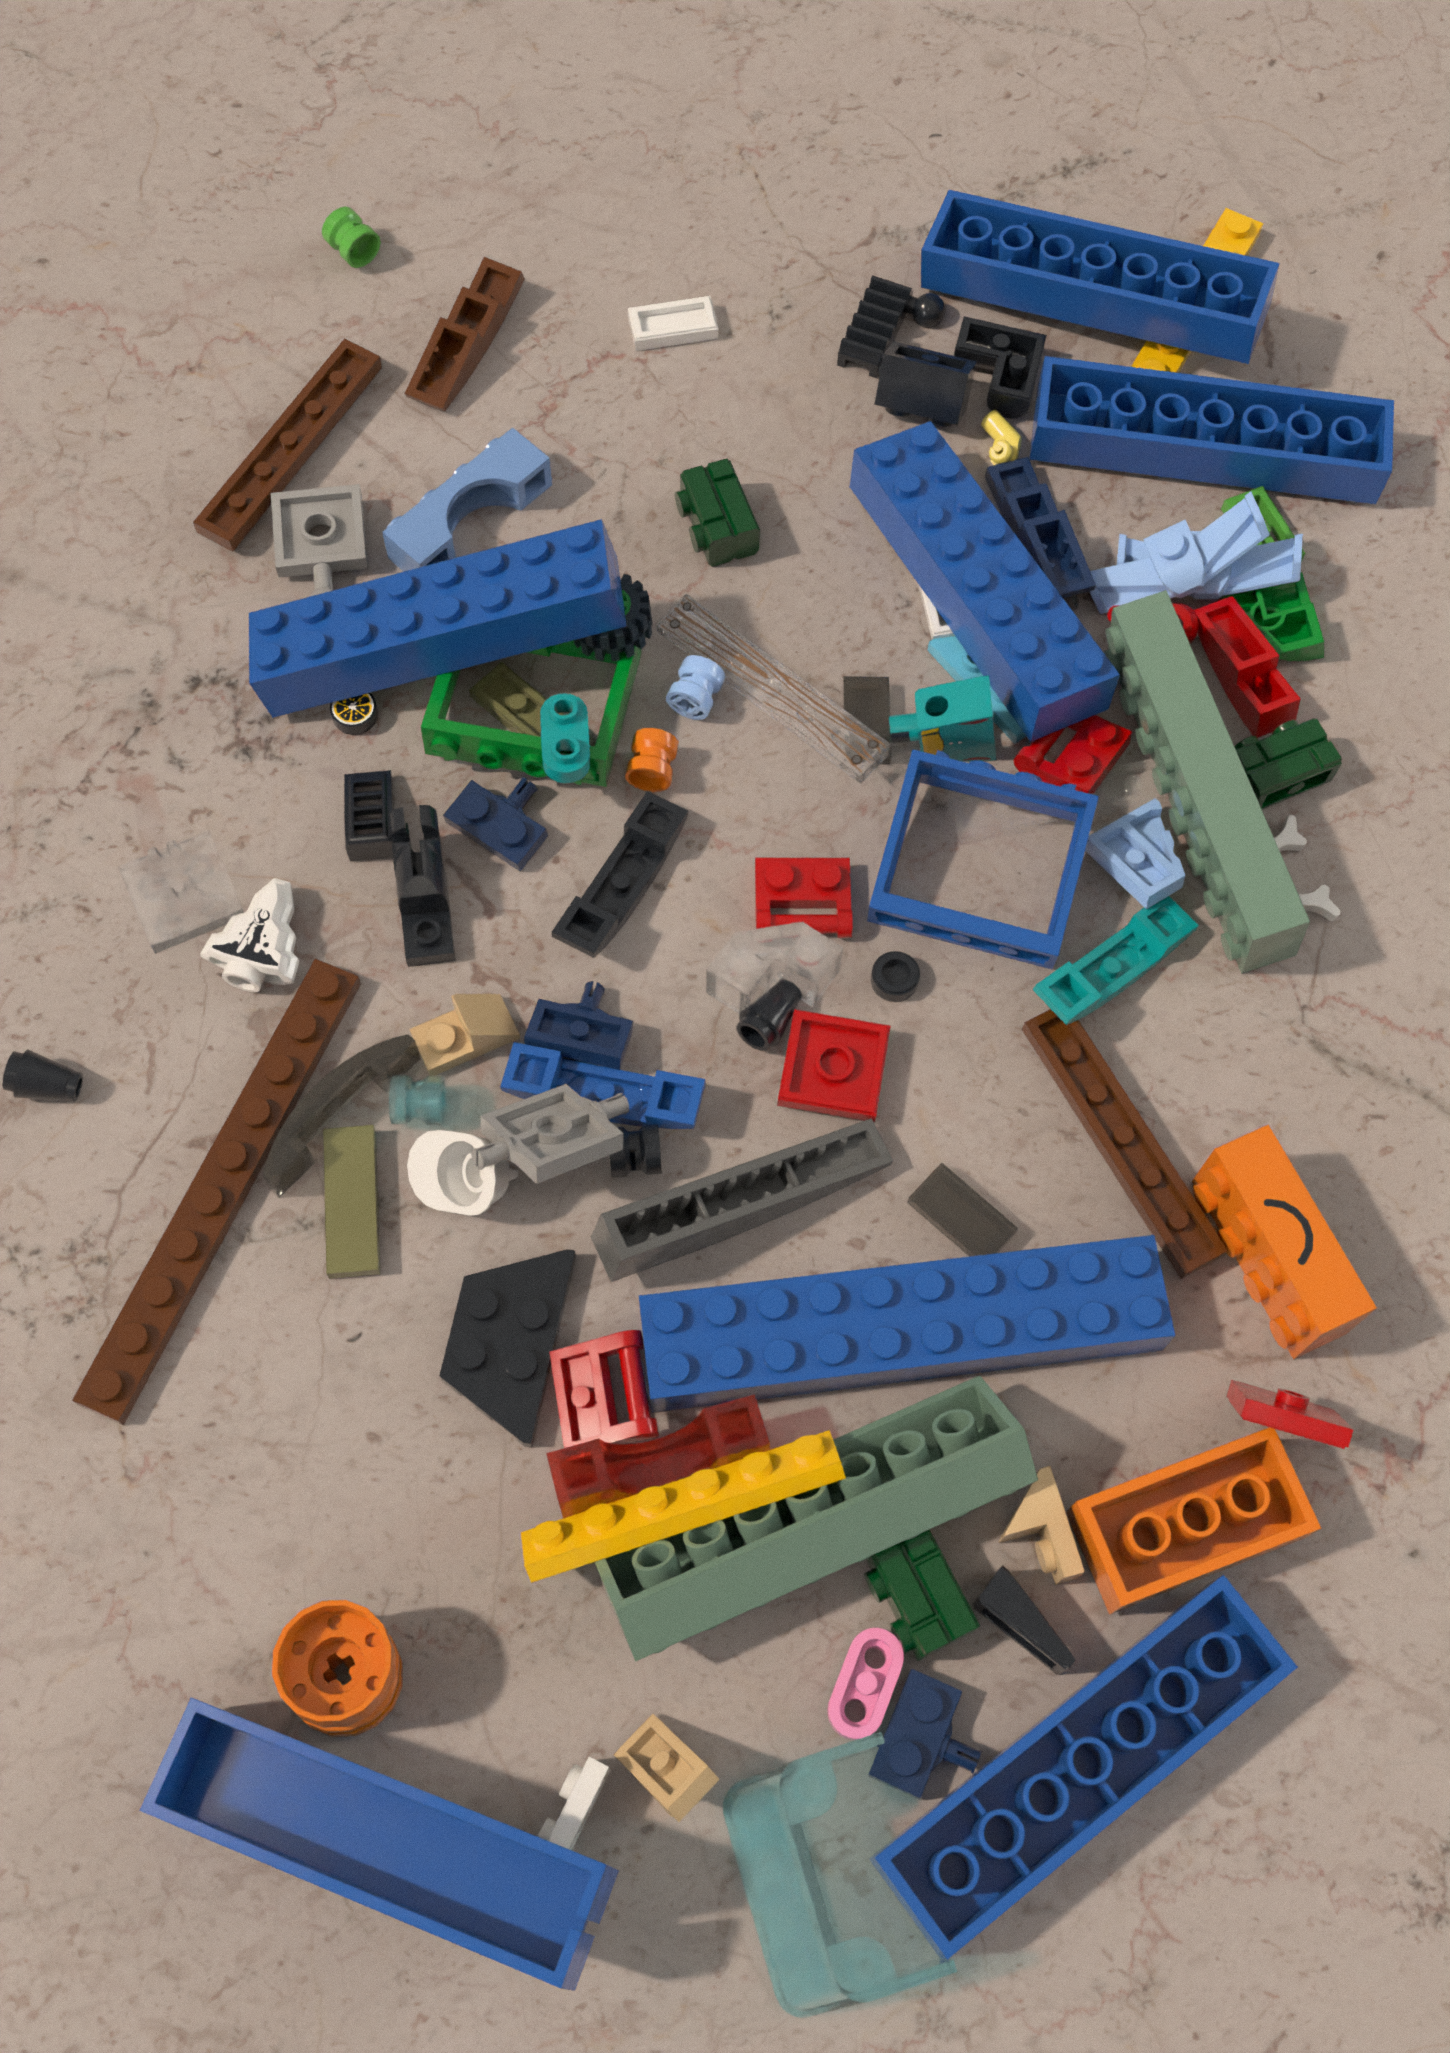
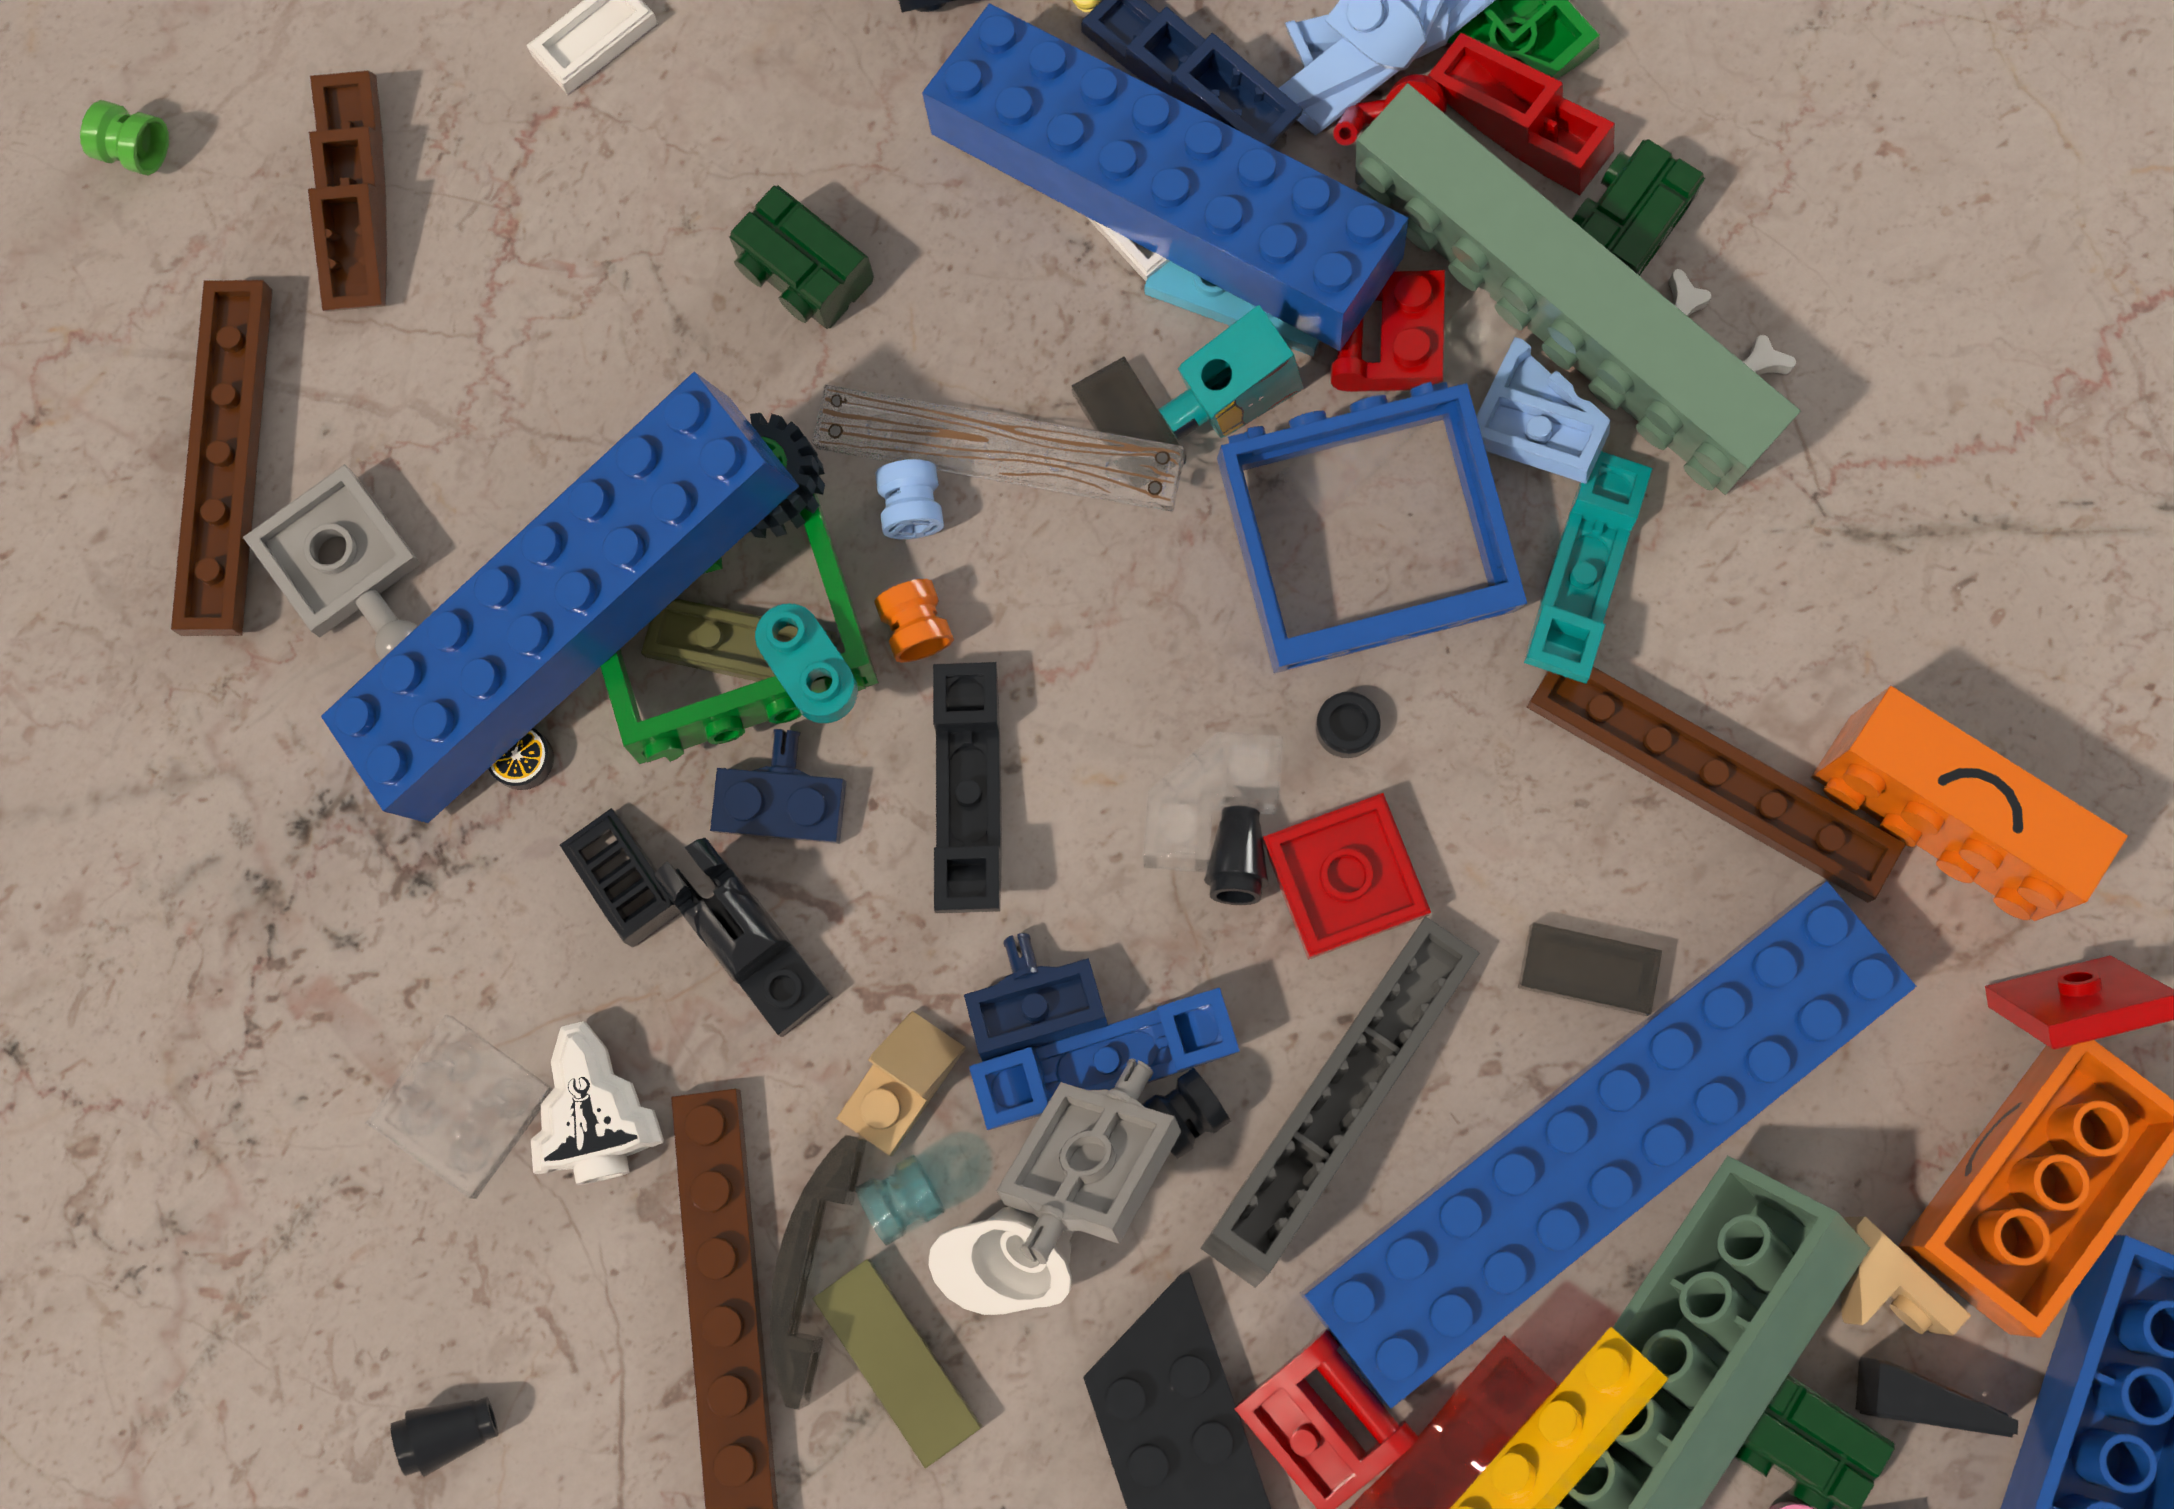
camera: 20 degrees left, 10 degrees up
(505, 474) = (513, 350): medium blue arch -> none
(804, 885) = (1176, 674): red plate -> none

